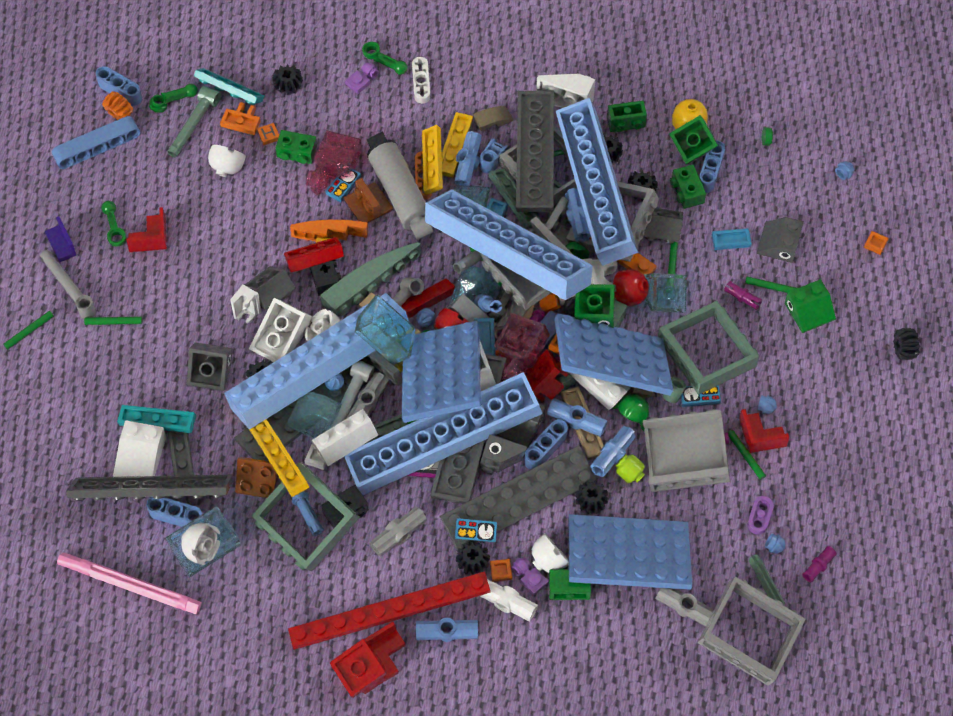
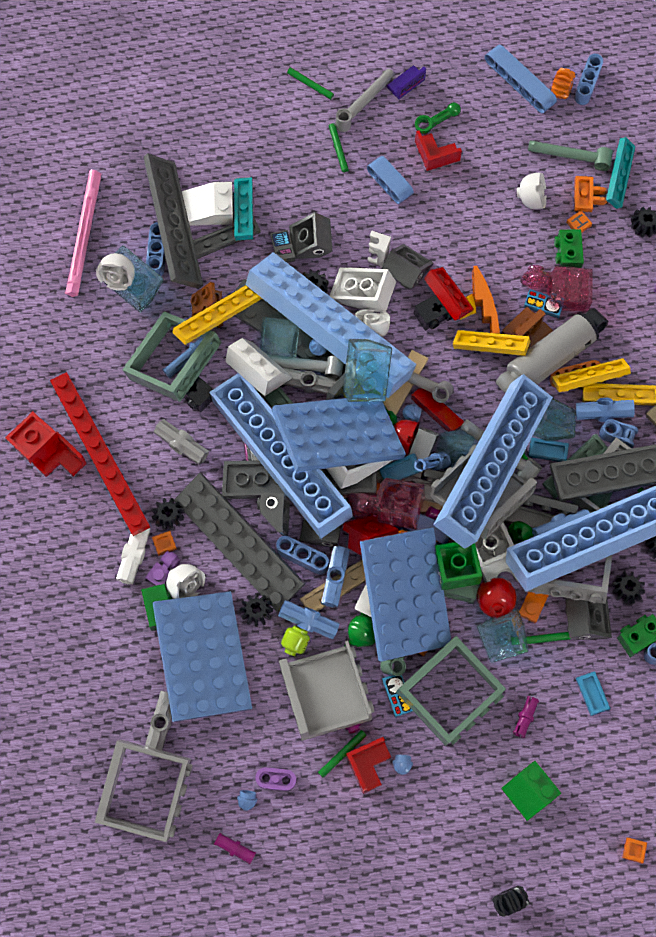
camera: 75 degrees right, 10 degrees up
(167, 281) = (390, 179): none -> medium blue beam
(189, 90) = (605, 140): green piece -> none
(209, 393) = (283, 246): none -> tile
(367, 278) = (440, 349): sand green slope -> none
(375, 231) = (491, 342): none -> yellow plate
(433, 629) = (93, 518): medium blue piece -> none
(475, 530) = (192, 508): tile -> none
(764, 578) = (205, 798): sand green axle -> none
(769, 285) = (548, 769): green bar -> none
(780, 238) = (605, 744): dark grey slope -> none

